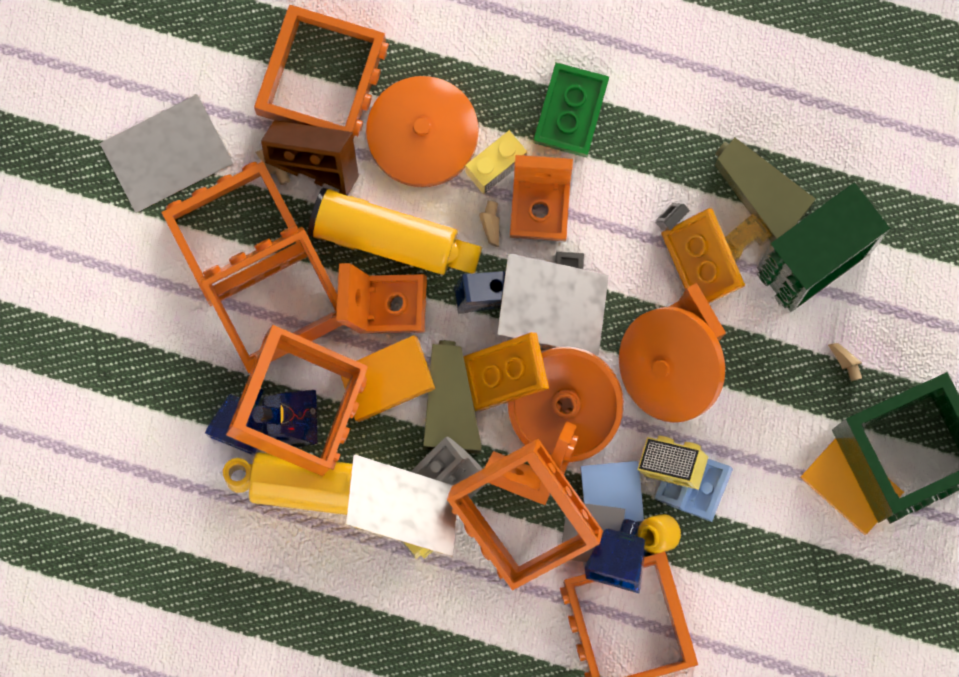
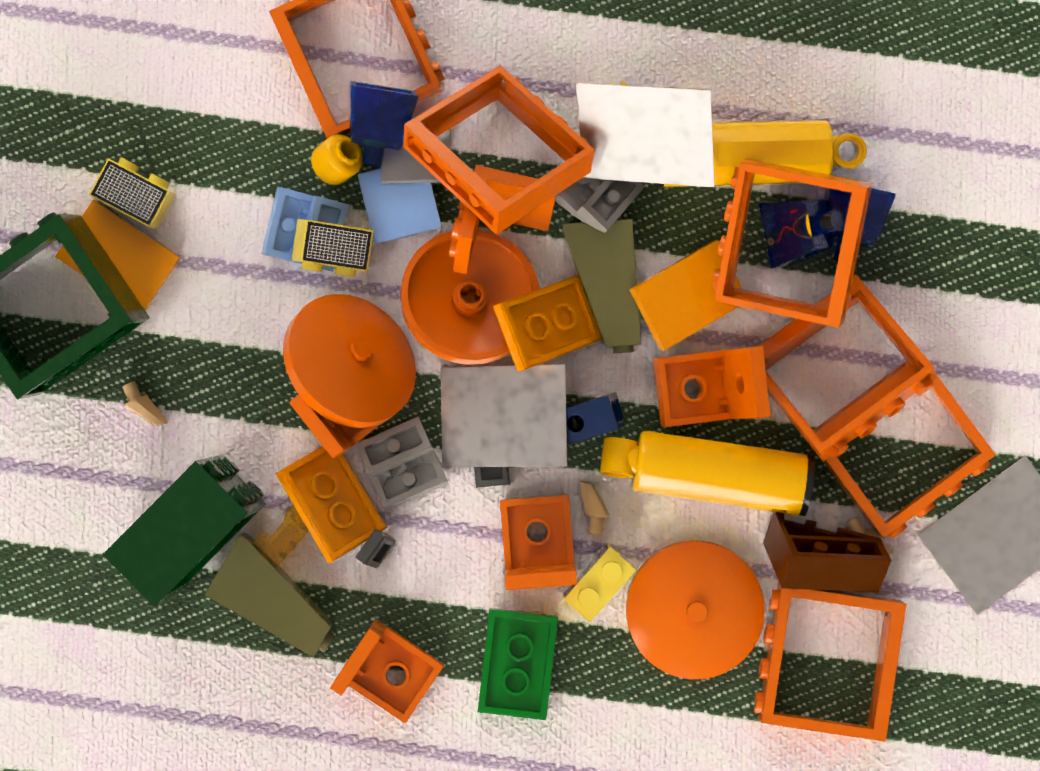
camera: 175 degrees right, 10 degrees up
(641, 282) = (402, 463): none -> light grey slope
(692, 122) = (368, 667): none -> orange bracket
(832, 533) = (132, 193): none -> brick

